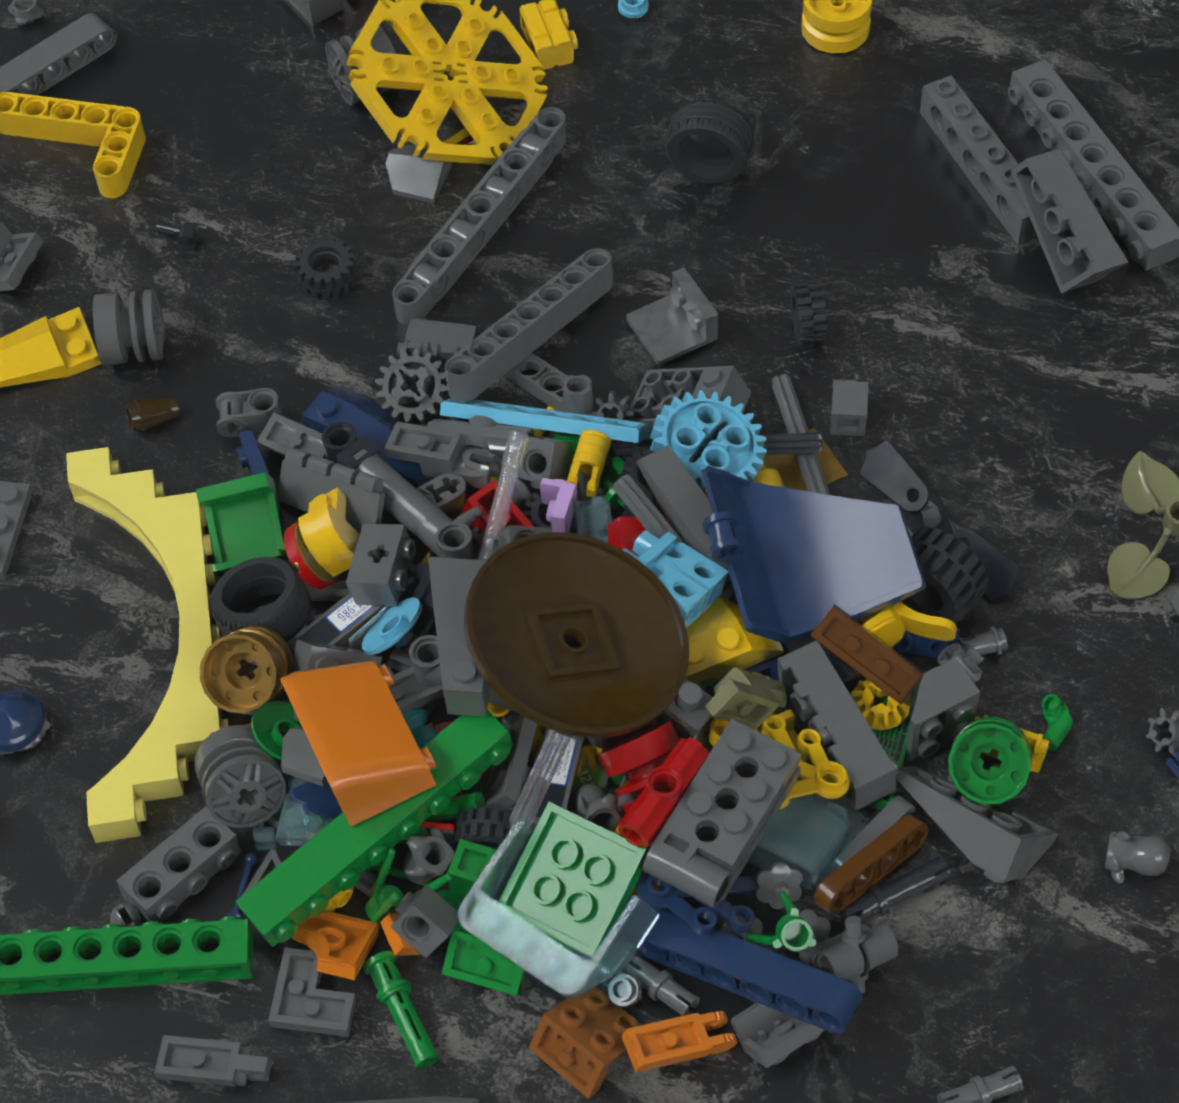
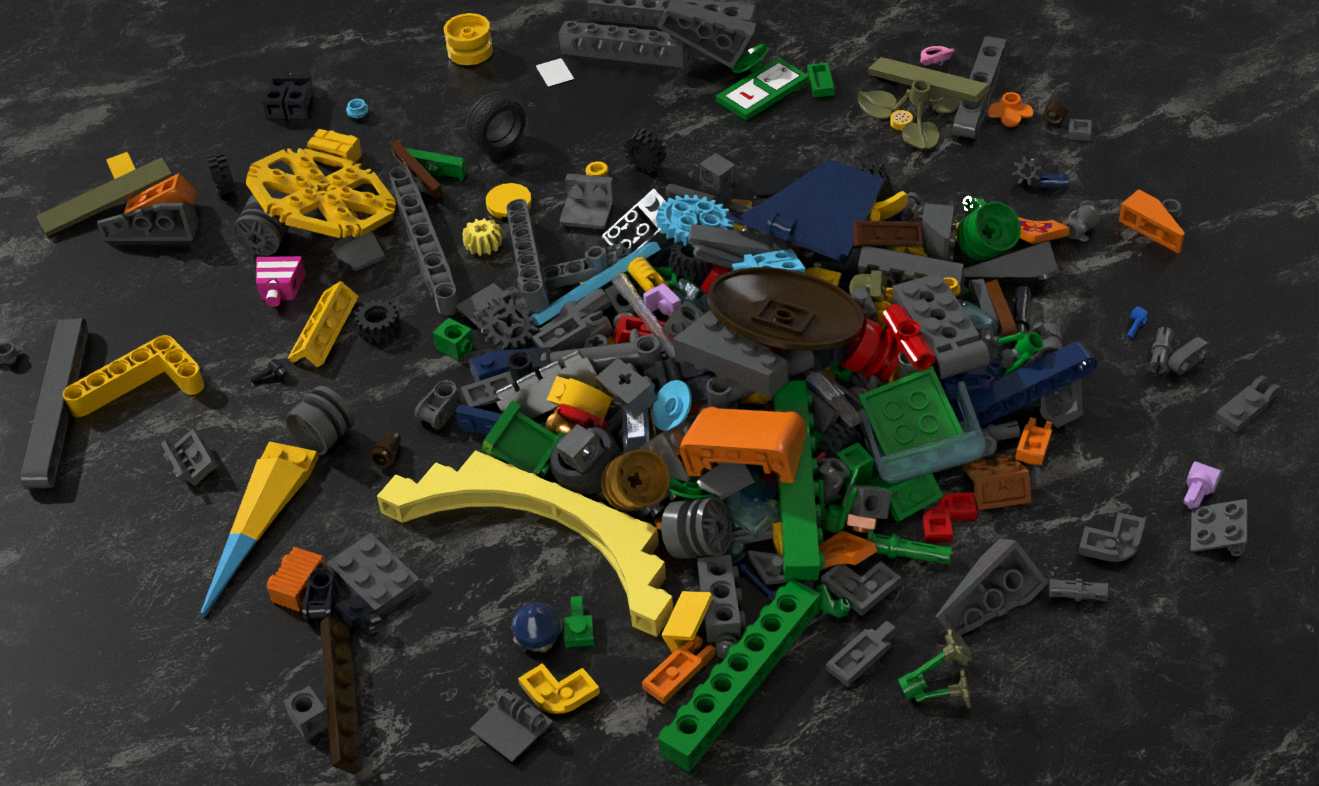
camera: 50 degrees left, 10 degrees down
(49, 762) = (578, 628): none -> green plate
(56, 894) = (677, 669): none -> orange hinge
(116, 853) = (686, 618): none -> yellow panel
(241, 585) = (580, 448): none -> dark grey brick
(260, 982) = (837, 608): none -> green arm
(281, 228) = (324, 324): none -> yellow fence
(309, 138) = (279, 278): none -> dark pink torso
(354, 353) = (453, 339): none -> green brick
(477, 1014) = (952, 506): none -> red tile
(532, 263) = (482, 236): none -> light yellow gear
(570, 128) = (416, 170): none -> reddish brown tile
(607, 134) = (445, 164): none -> green piece
(624, 239) = (501, 195): none -> yellow tile
(746, 291) = (597, 169): none -> yellow tile
(880, 130) = (554, 72): none -> white sticker
(1020, 1032) = (1139, 316): none -> blue hand
(1055, 349) = (762, 88): none -> tile
(1066, 812) = (1042, 231): none -> orange tile
(1088, 300) = (751, 59): none -> green dish
(1134, 397) = (821, 80): none -> green tile
(1144, 530) = (900, 119): none -> tile

